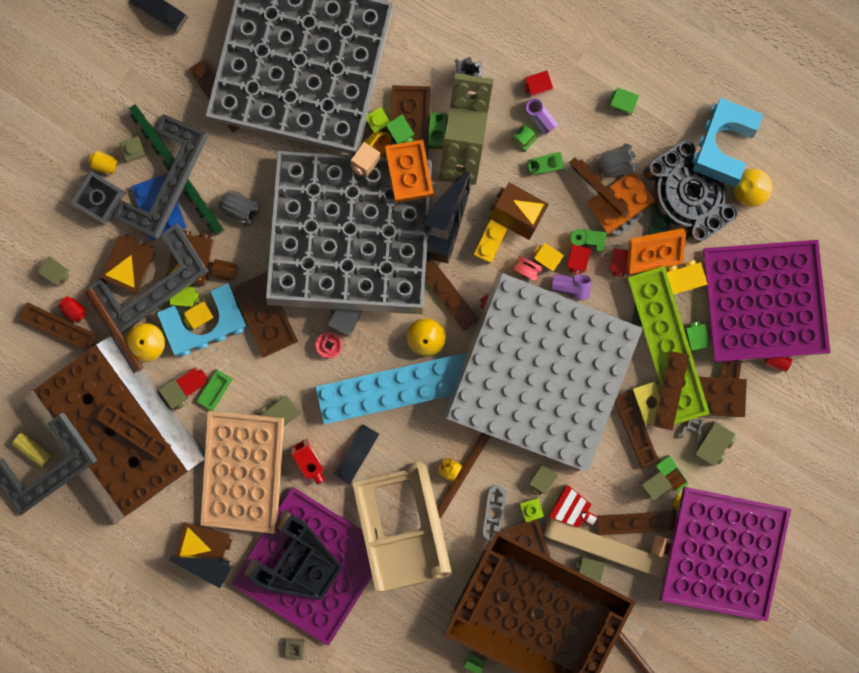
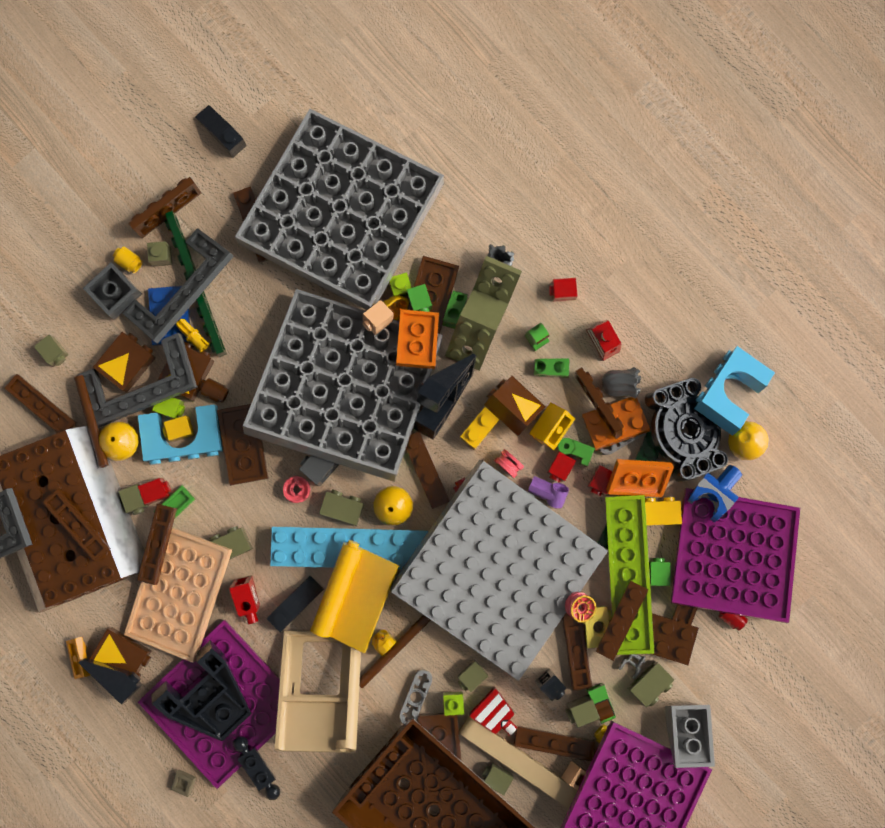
camera: 10 degrees right, 5 degrees down
(72, 309) = (58, 392): red brick -> none
(131, 96) = (171, 200): none -> reddish brown plate
(161, 555) = (77, 652): none -> light orange plate
(188, 221) = (192, 335): none -> yellow axle
(210, 431) = (157, 544): none -> reddish brown plate
(238, 207) = (245, 334): dark grey piece -> none
(360, 616) = (256, 768): none -> black plate
(377, 352) = (342, 508): none -> olive brick
(412, 432) = (354, 596): none -> yellow door
(542, 117) = (558, 322): medium lavender piece -> none
(547, 256) = (531, 457): yellow brick -> none
(560, 221) = (552, 426): none -> yellow brick
(590, 123) = (604, 339): none -> red torso
(620, 469) = (551, 685): none -> black slope
(623, 101) = (641, 326): bright green brick -> none
(634, 382) = (587, 603): none -> coral wheel
(734, 243) = (718, 491): none -> blue connector
(762, 481) = (690, 735): none -> light grey slope

